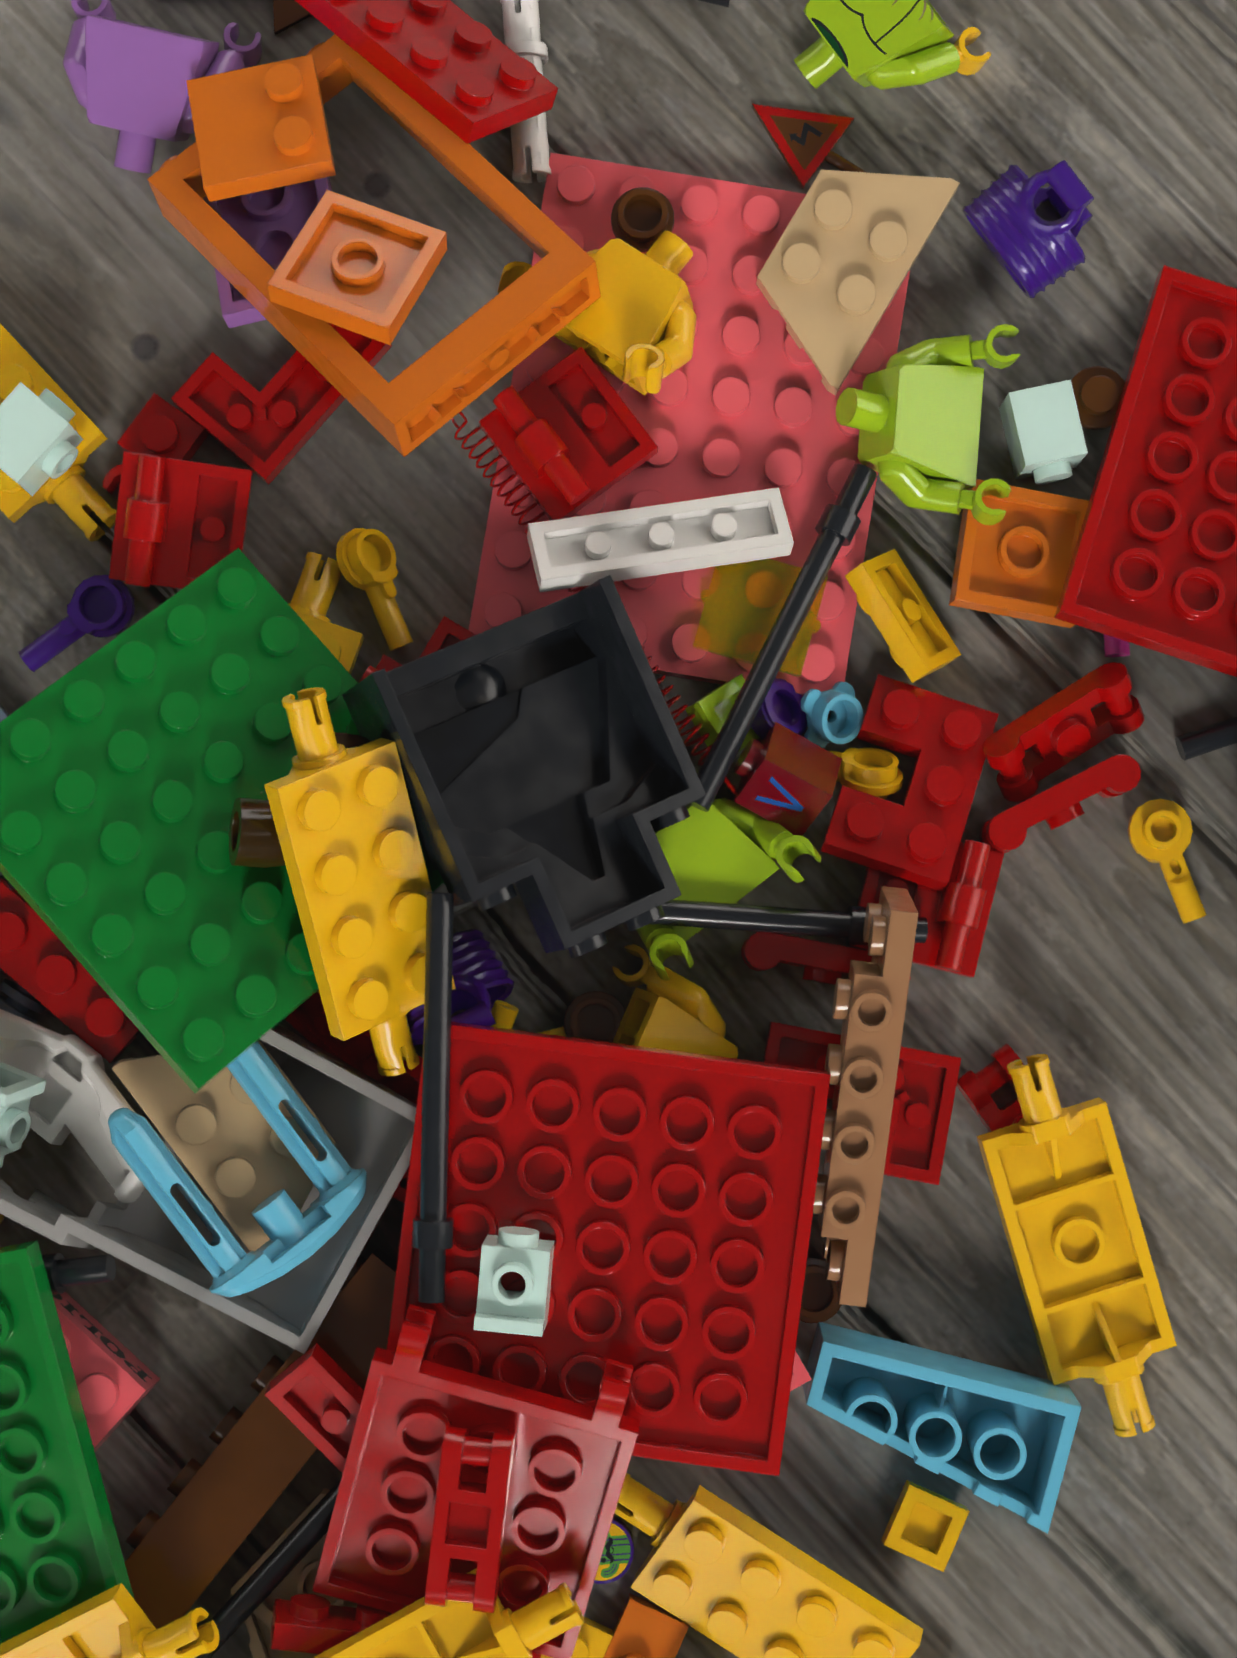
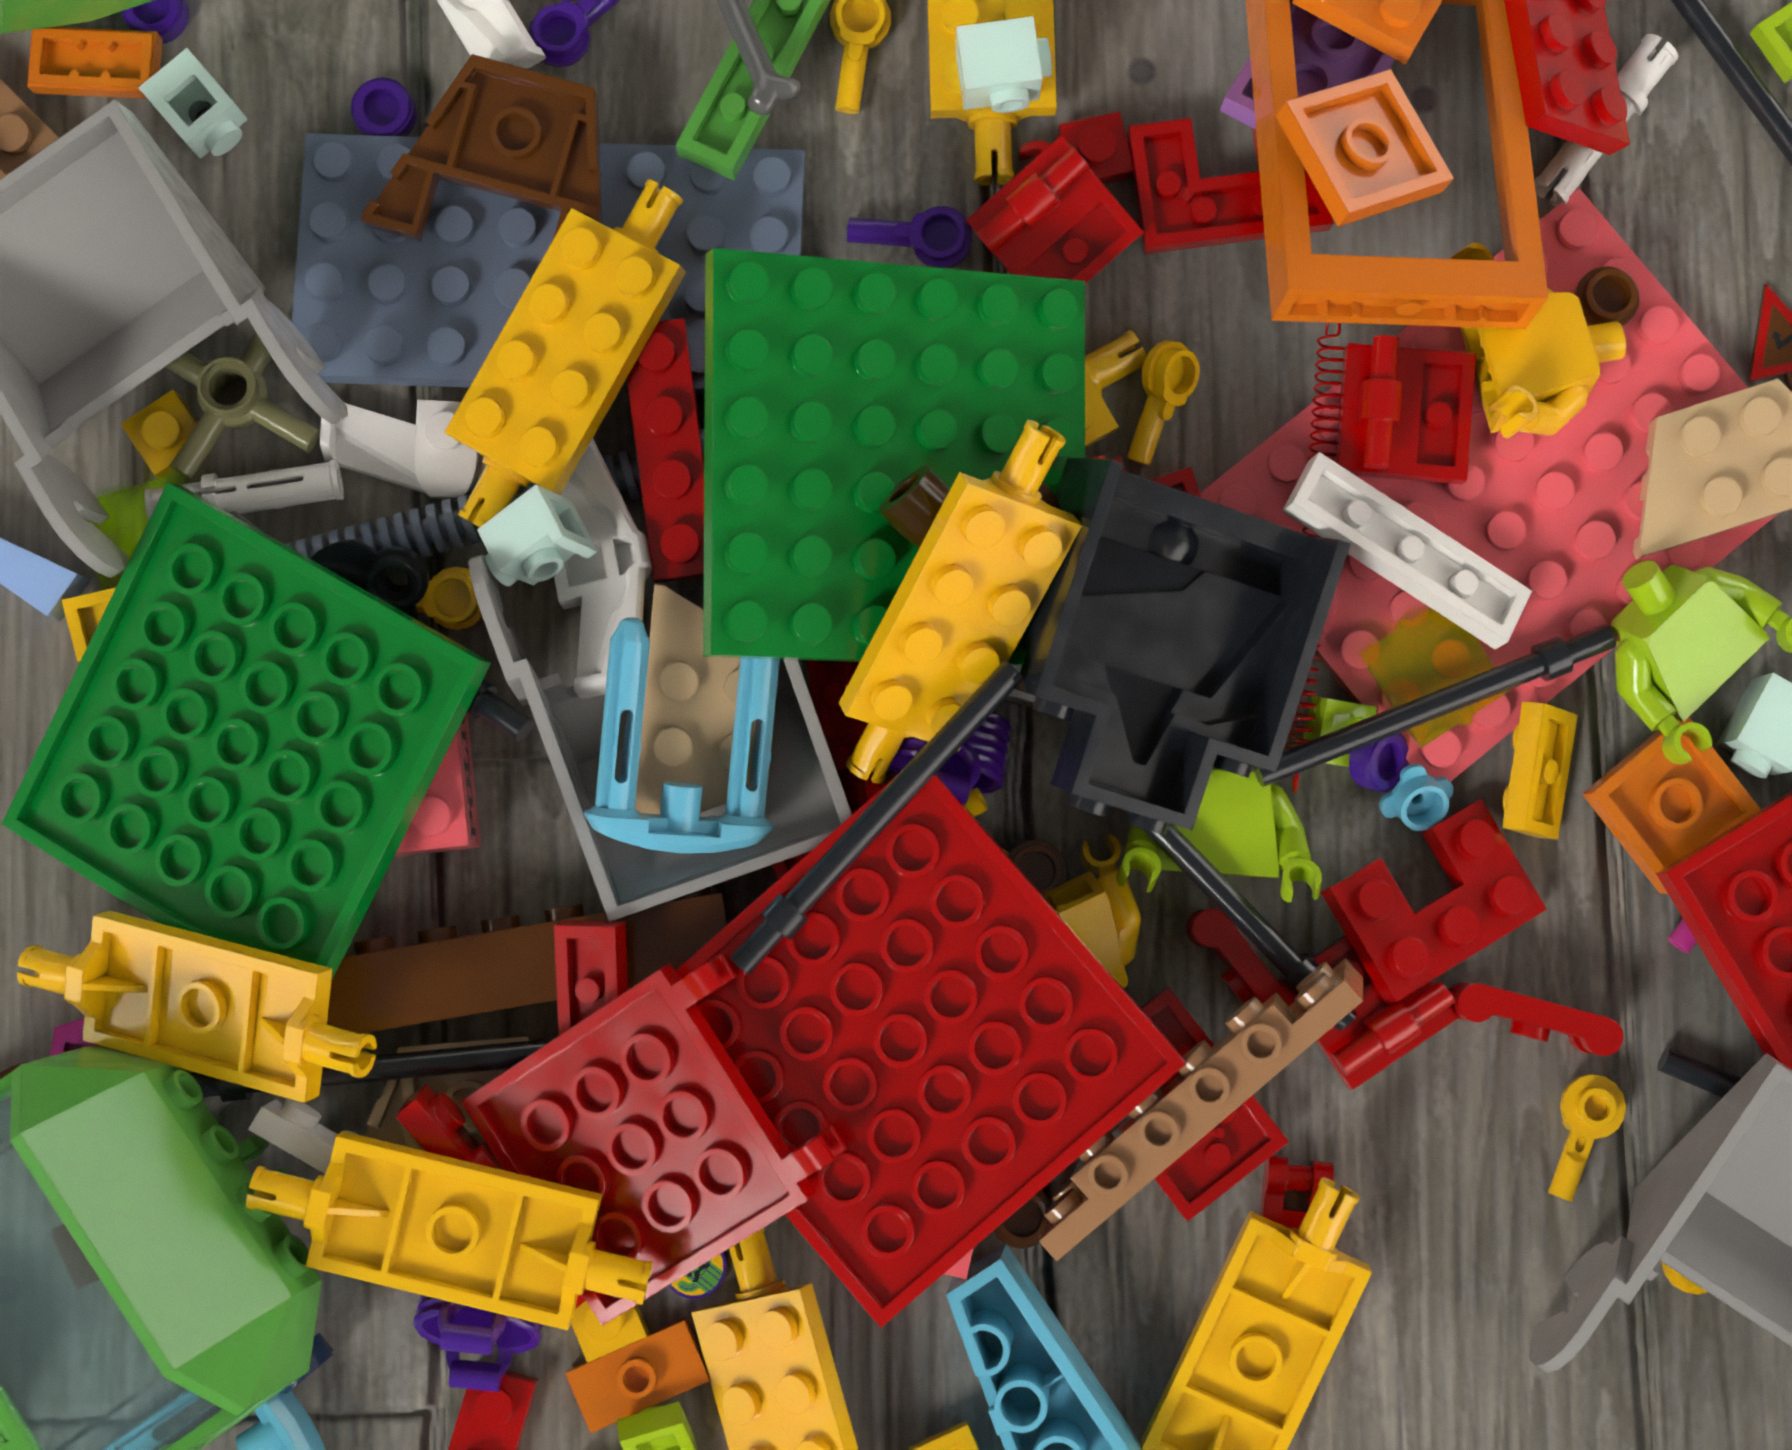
camera: 45 degrees right, 0 degrees up
(469, 1519) = (627, 1151): red plate -> none
(514, 1311) = (798, 1031): light aqua brick -> none
(786, 778) = (1343, 814): dark red brick -> none
(870, 771) = (1405, 858): yellow plate -> none
(1062, 729) = (1586, 964): red plate -> none

